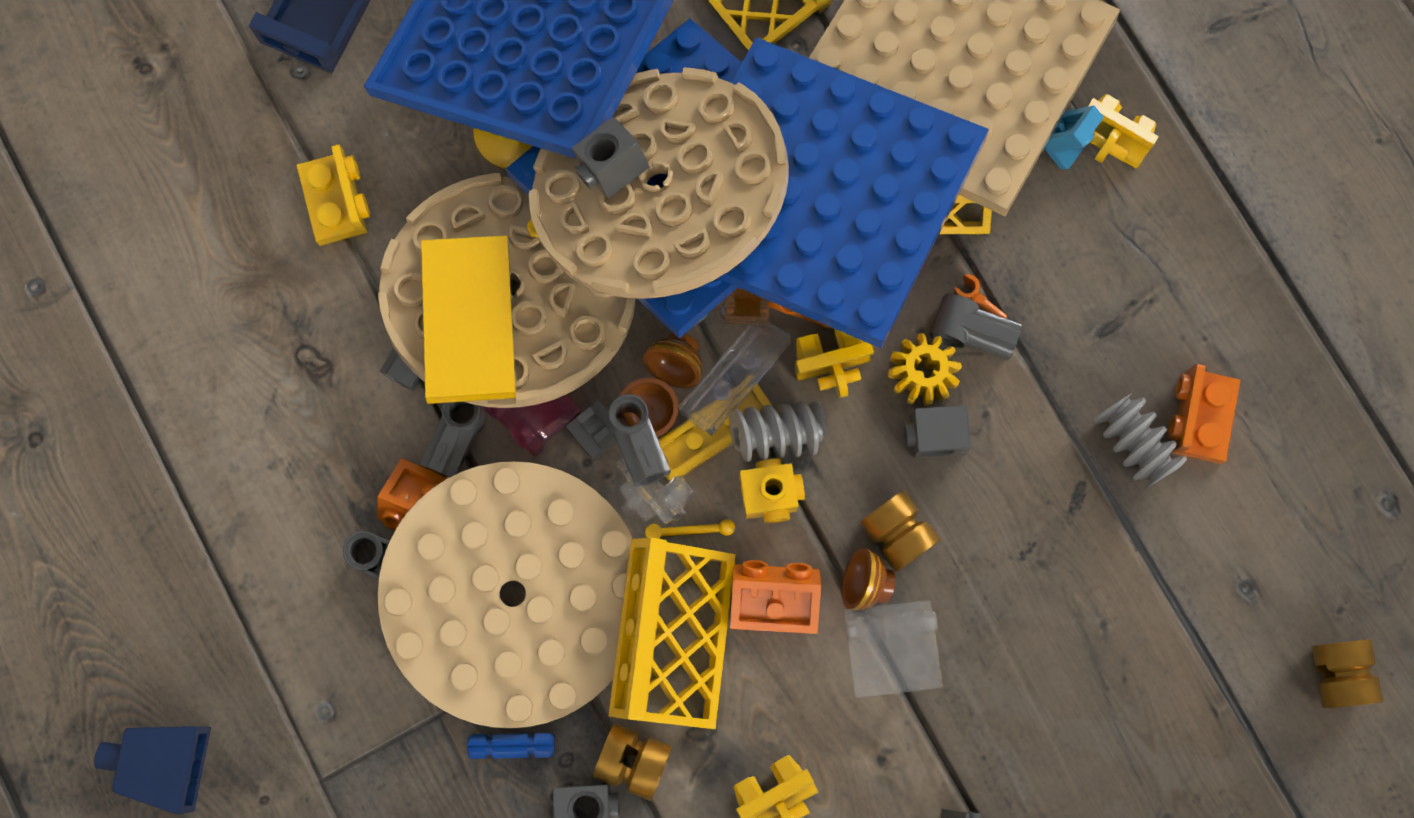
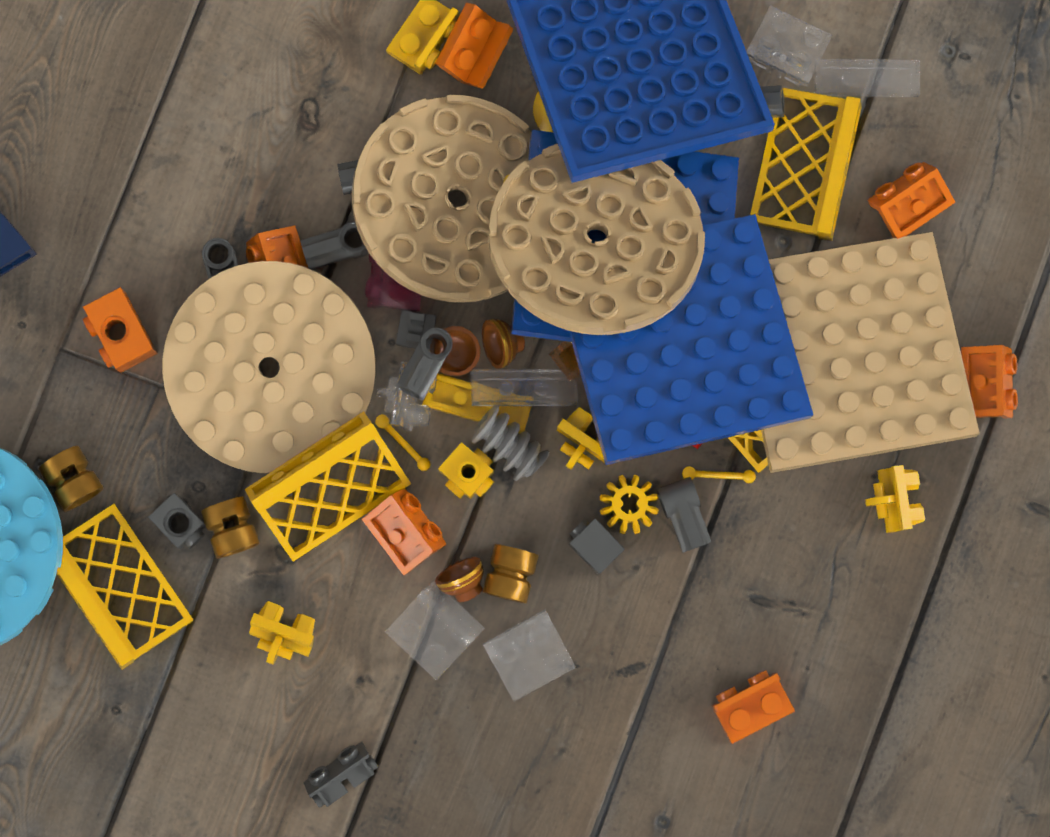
camera: 45 degrees right, 5 degrees up
(325, 702) = (135, 344): none -> orange brick
(384, 160) = (474, 46): none -> orange bracket
(467, 319) = (412, 192): yellow tile -> none
(511, 745) = (178, 445): blue axle -> none
(609, 158) = (581, 208): dark grey brick -> none
(977, 297) = (708, 502): orange hand -> none
(984, 245) = (747, 476): none -> yellow hinge
(990, 579) = (529, 655): none -> clear hinge
(1072, 135) = (866, 471): dark azure bracket -> none
(1140, 440) = (697, 677): light grey piece -> none

